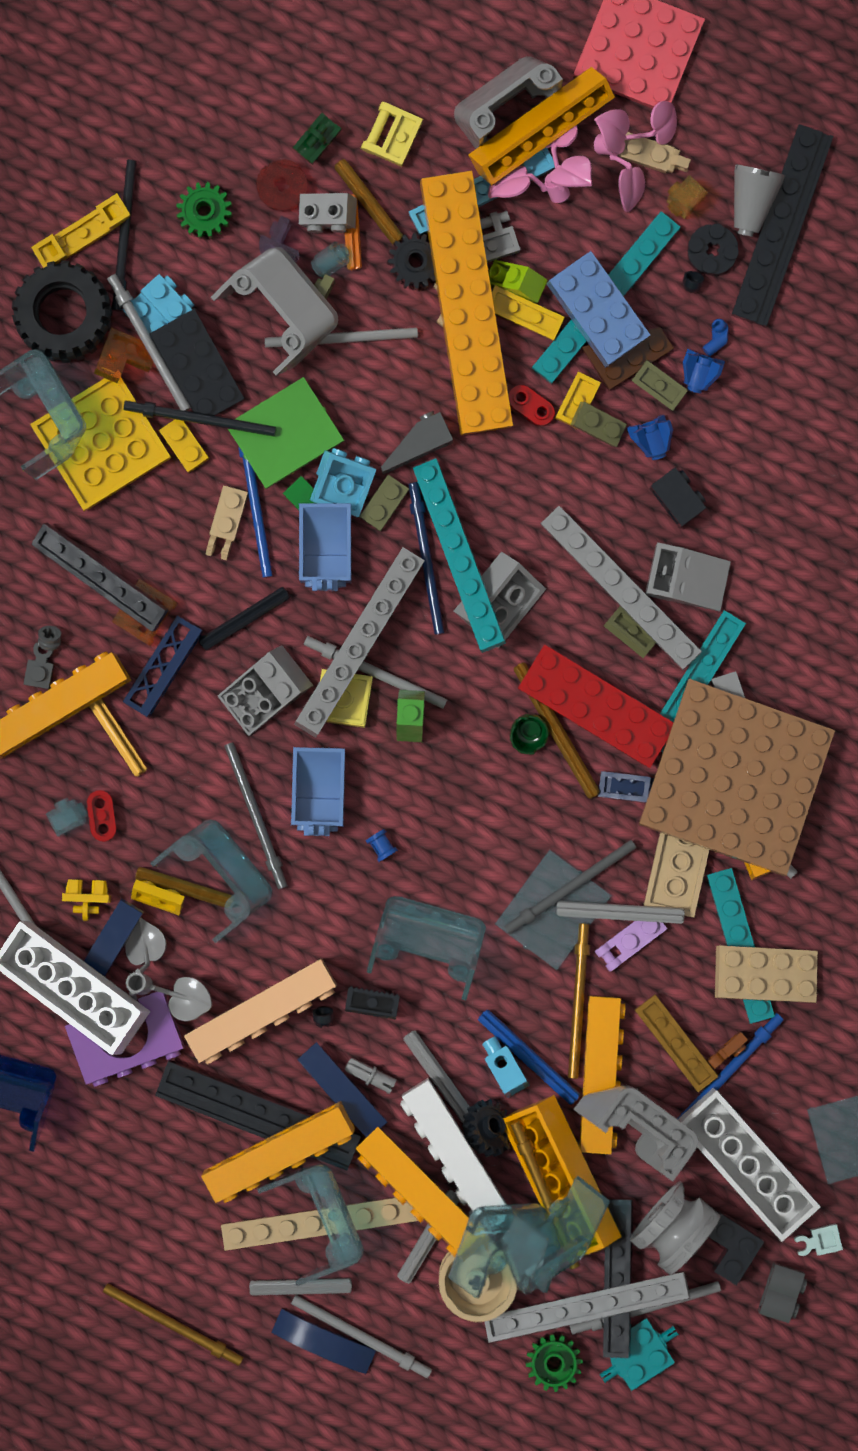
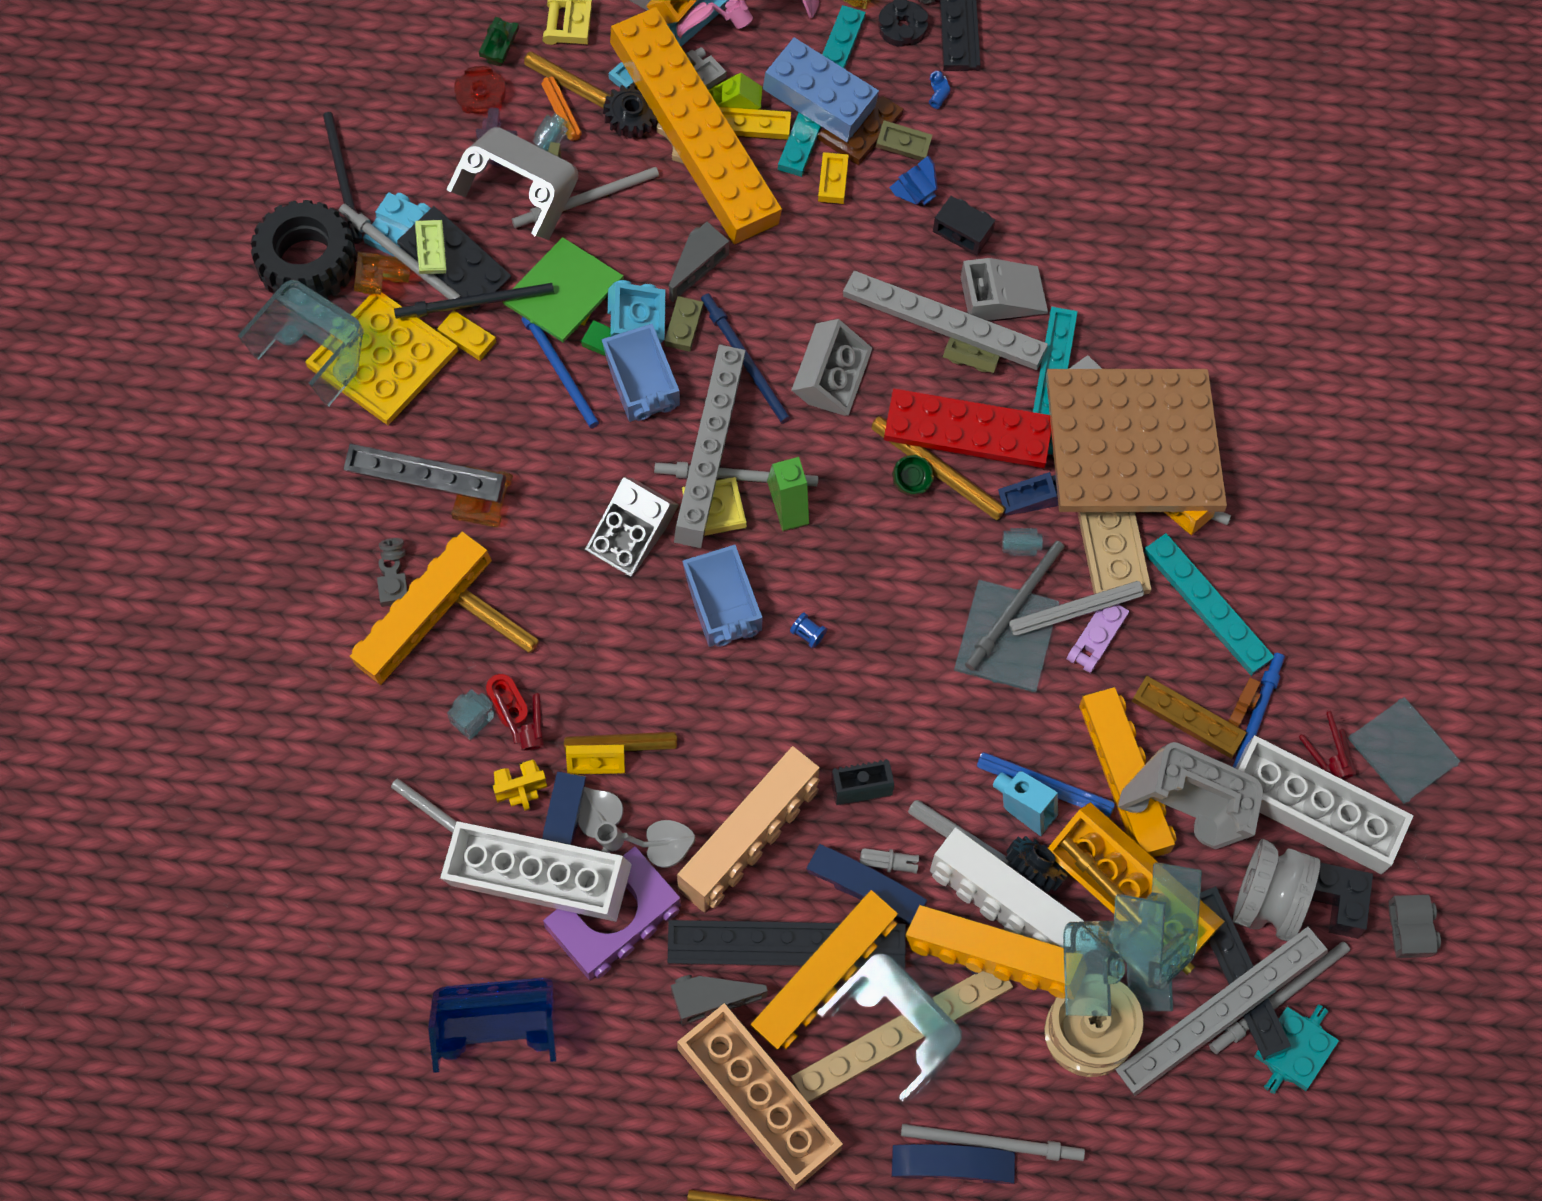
camera: 25 degrees left, 20 degrees down
(82, 232) = (308, 180): yellow slope -> none
(110, 856) = (530, 734): none -> dark red plant
(172, 669) = (526, 541): dark blue fence -> none
(175, 355) = (430, 247): none -> yellowish green plate
(175, 1135) = (703, 995): none -> dark grey slope
(187, 1234) = (759, 1096): none -> light nougat brick
(204, 197) = (413, 131): green gear -> none
(227, 519) = (534, 386): tan hinge -> none
(231, 863) = (690, 719): clear light blue windscreen -> none
(244, 618) = (585, 469): black axle -> none
(273, 862) = (703, 685): dark grey bar -> none
(289, 1287) = (904, 1112): light grey axle -> none
(323, 1016) = (816, 819): black hinge -> none
(327, 211) = (532, 92): light grey brick -> none
(421, 1249) = (1017, 1024): light grey axle -> none
(430, 934) = (895, 700): clear light blue windscreen -> none
(459, 555) = (779, 336): teal plate -> none
(530, 406) = (790, 197): red plate -> none
(560, 1375) = (1200, 1100): green gear -> none
(582, 949) = (1054, 662): pearl gold bar -> none
(598, 424) = (861, 189): olive plate -> none
(600, 830) = (1022, 542): none -> clear light blue brick
(692, 281) = (896, 52): black hinge -> none
(700, 371) = (937, 115): blue brick -> none
(766, 974) = (1247, 616): tan plate -> none
(786, 1134) = (1341, 764): none -> dark red plant
(823, 1240) = (1428, 858): light aqua plate -> none

